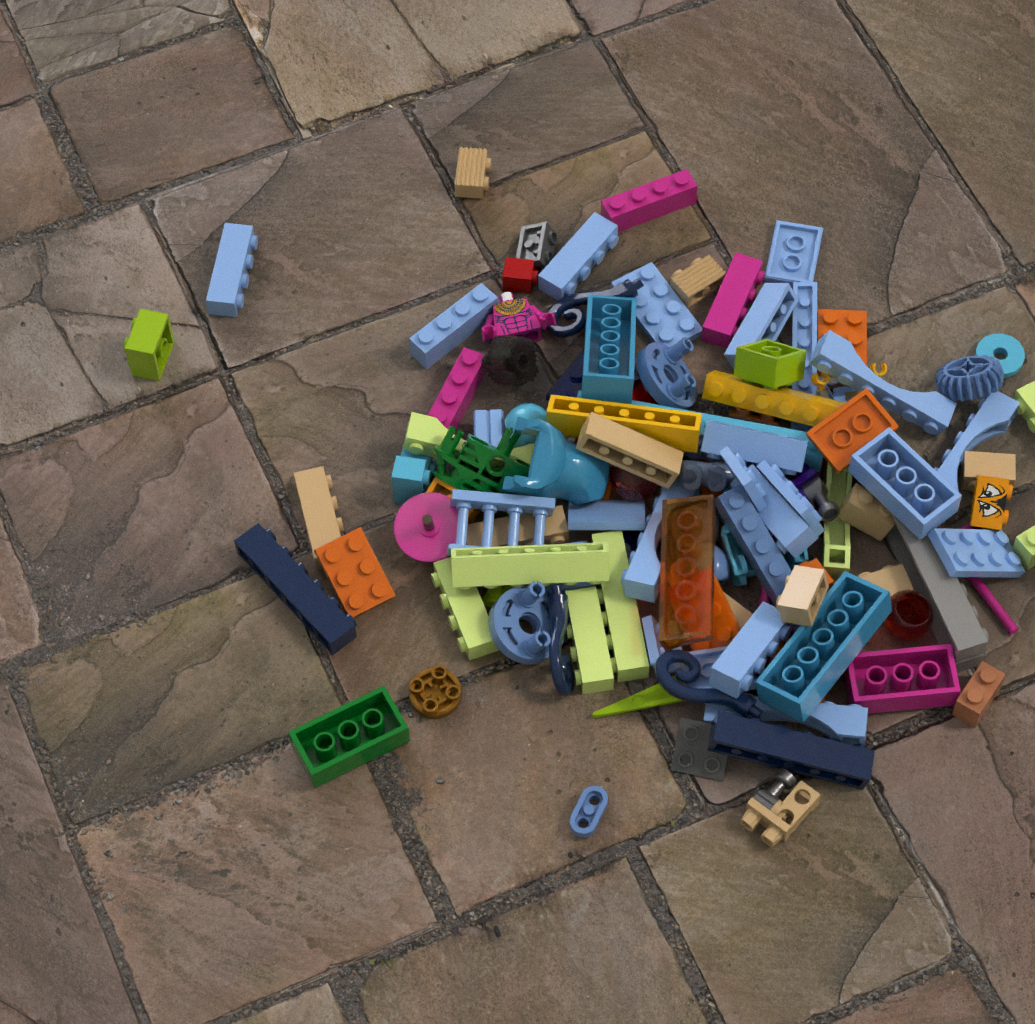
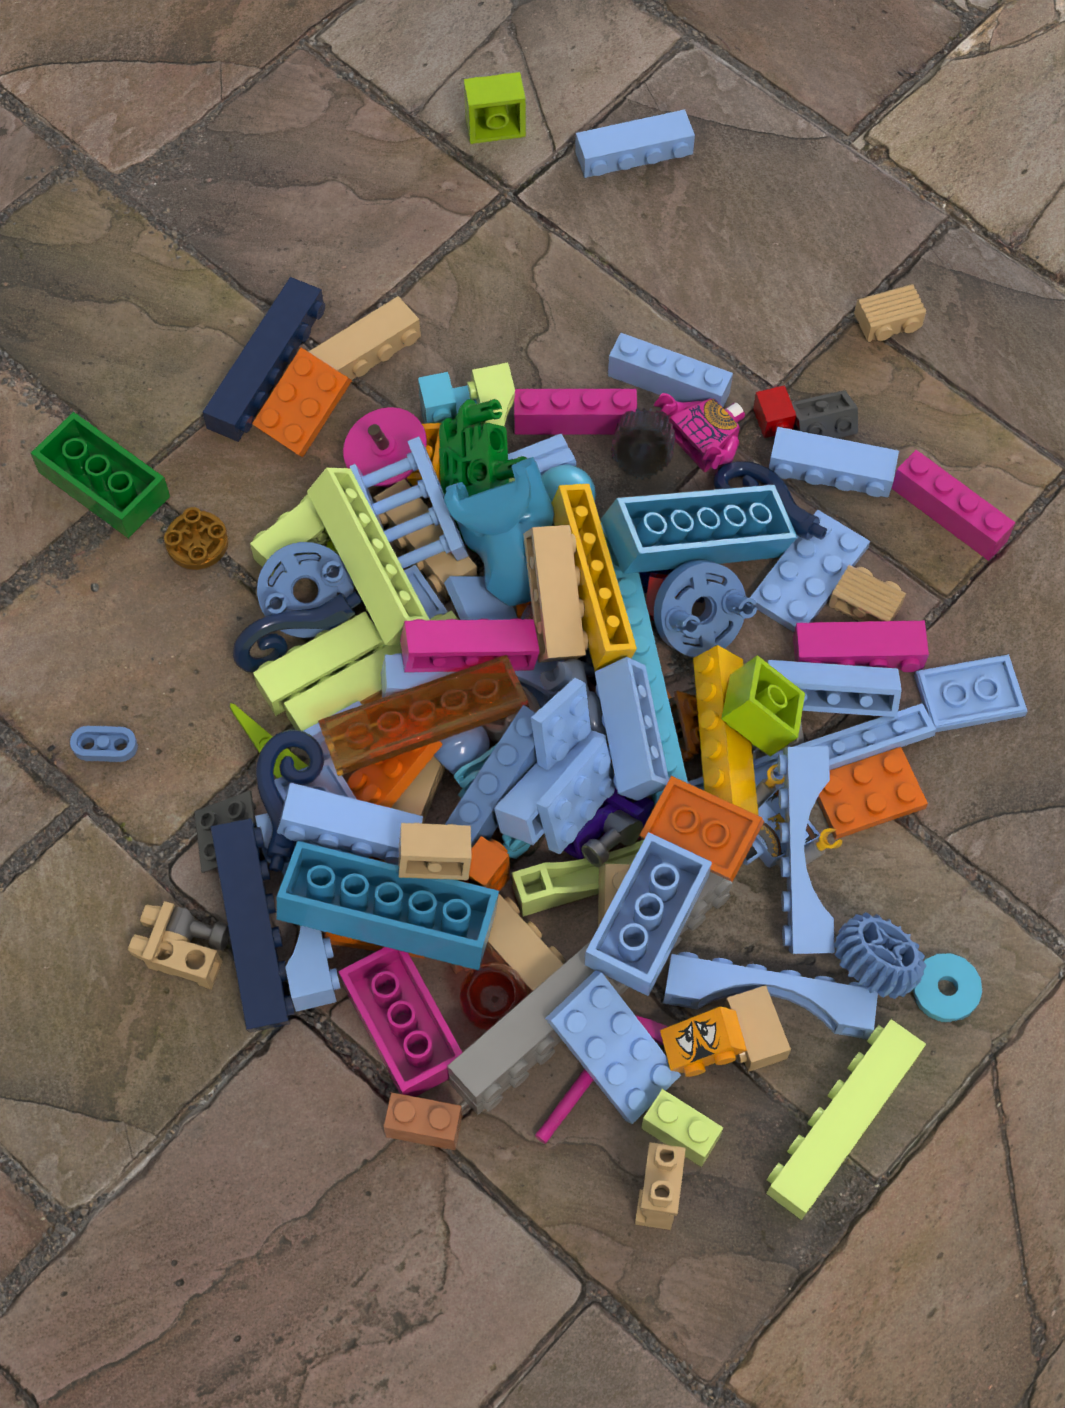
camera: 65 degrees right, 5 degrees up
(639, 523) = (460, 644): none -> dark pink brick

